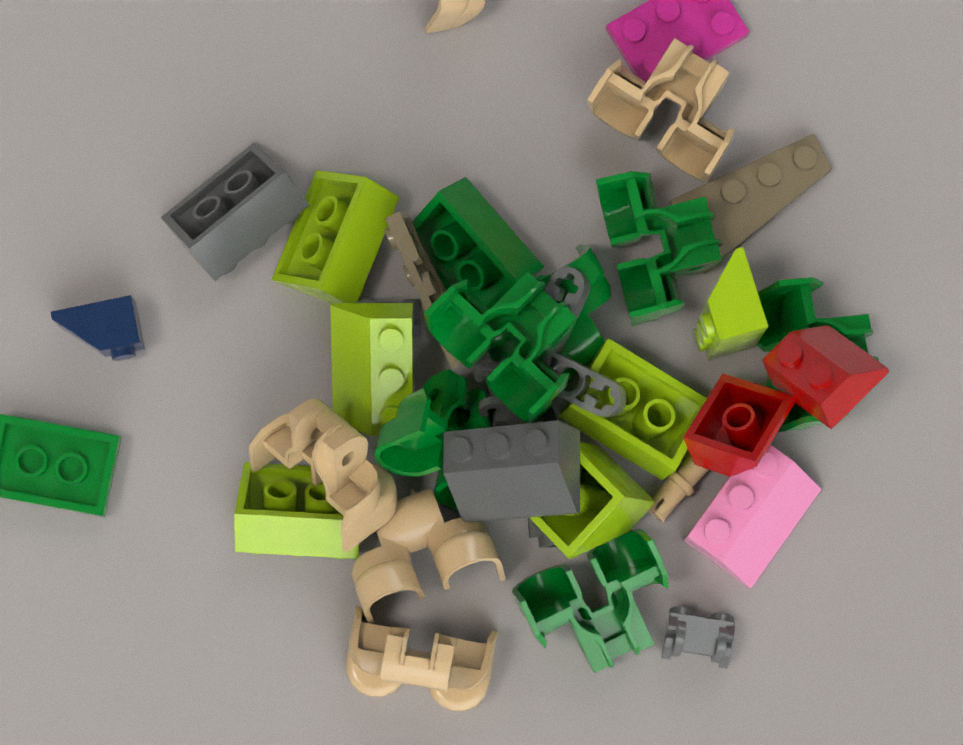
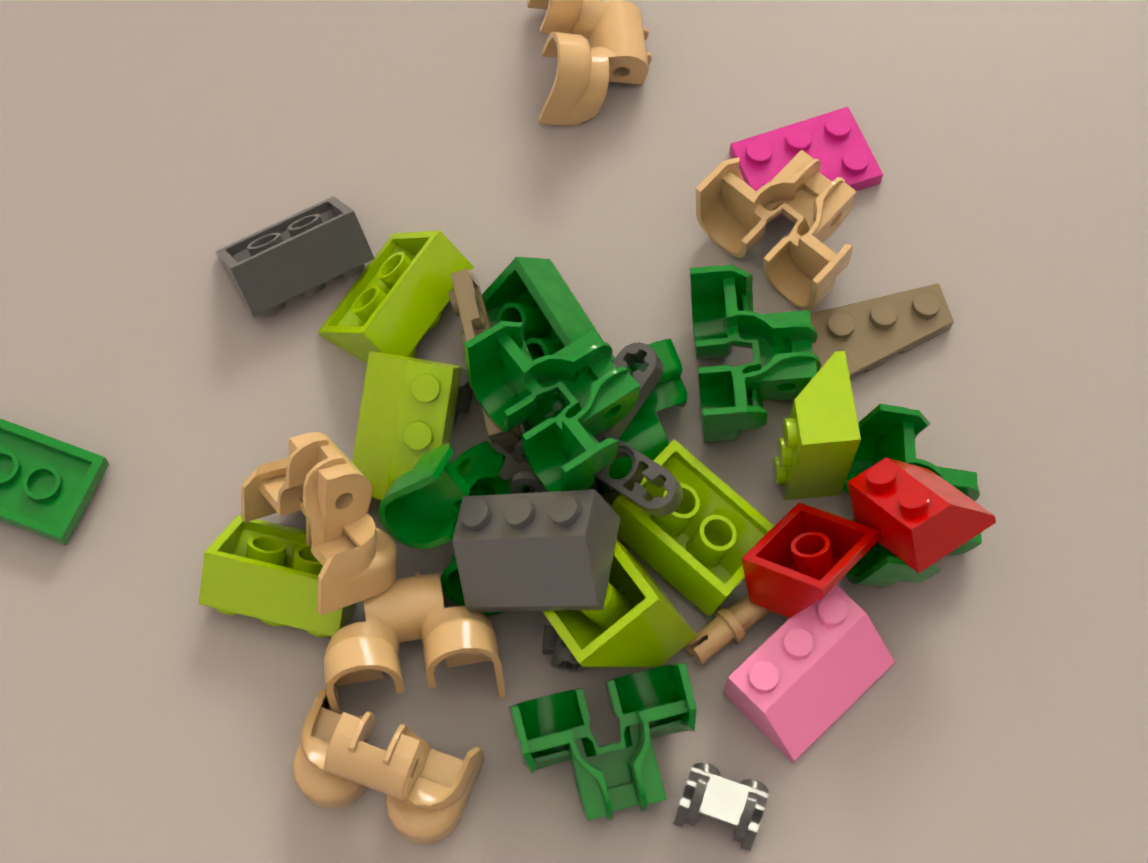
camera: 10 degrees right, 15 degrees down
(106, 326) = (122, 342): dark blue slope -> none

